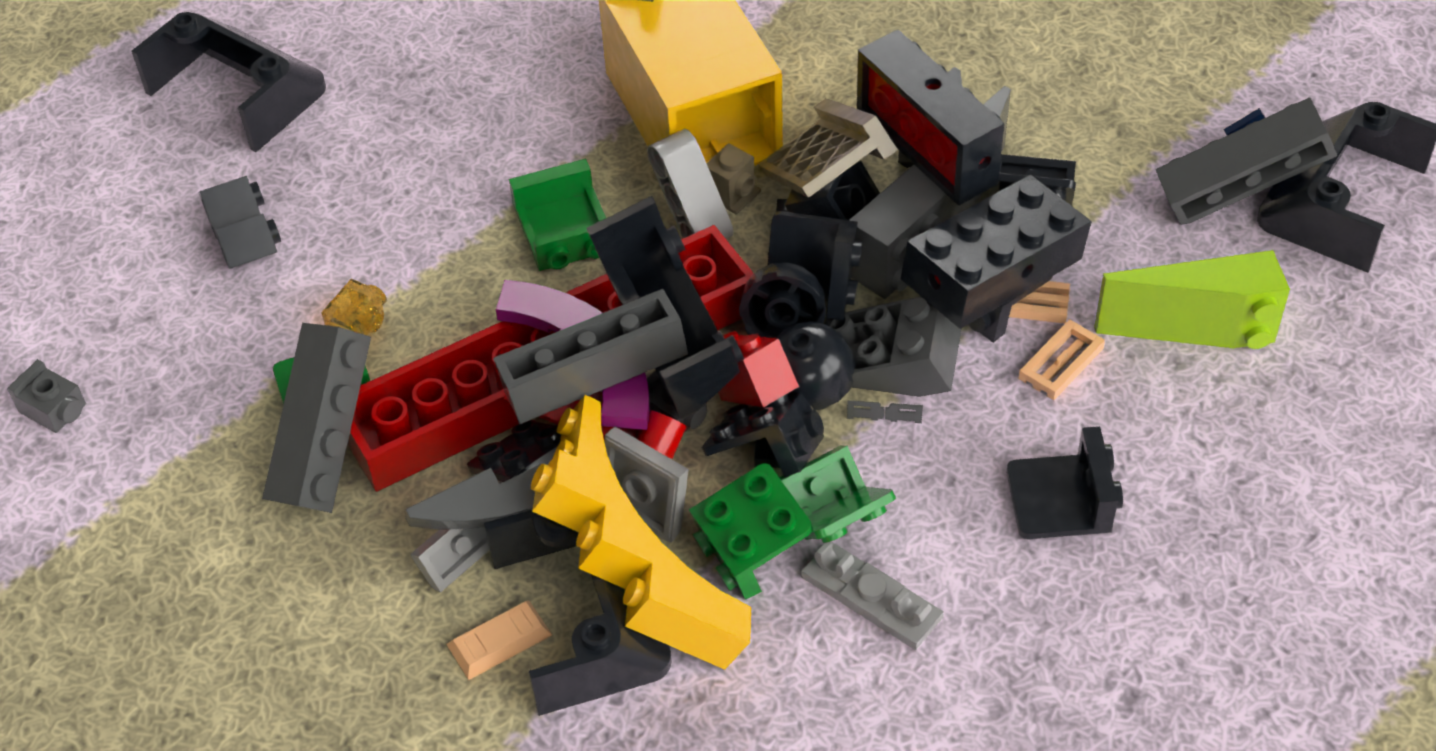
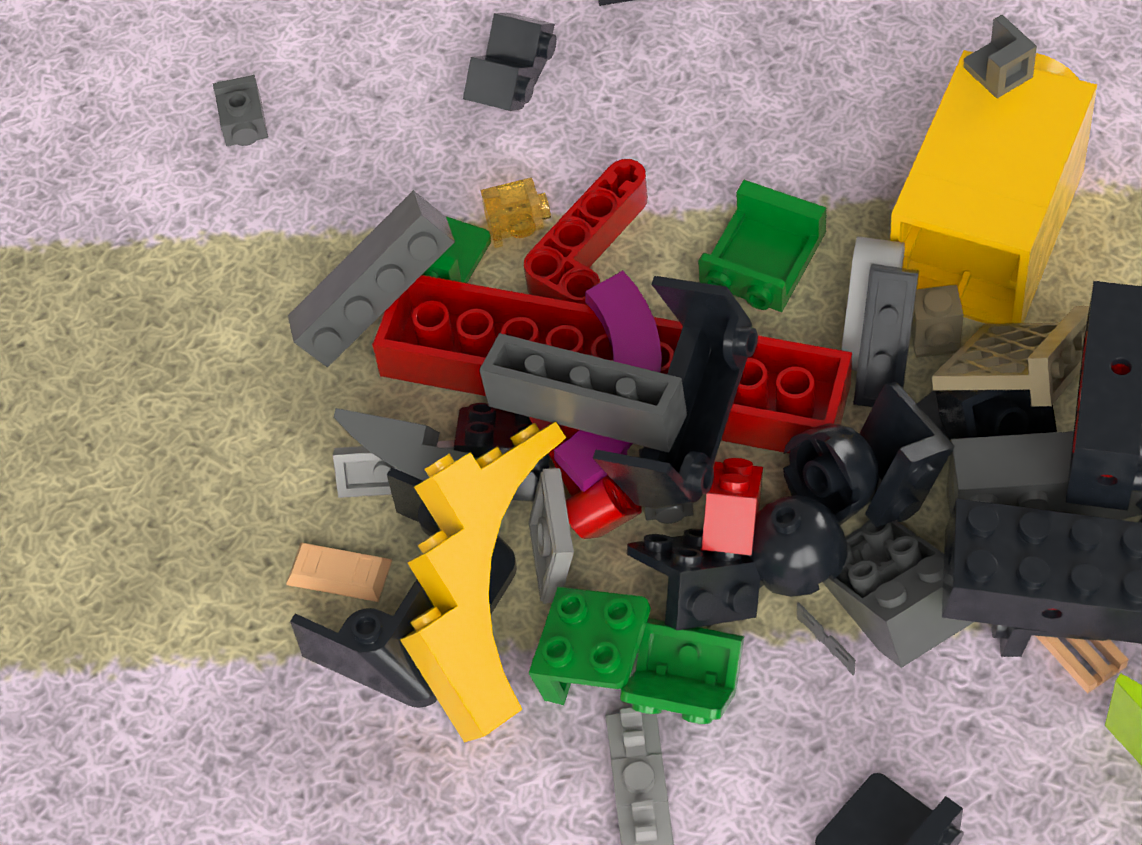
camera: 50 degrees right, 5 degrees up
(429, 318) = (562, 259): none -> red beam
(722, 197) = (885, 331): none -> black tile
(1042, 382) = (1039, 741): light nougat tile -> none

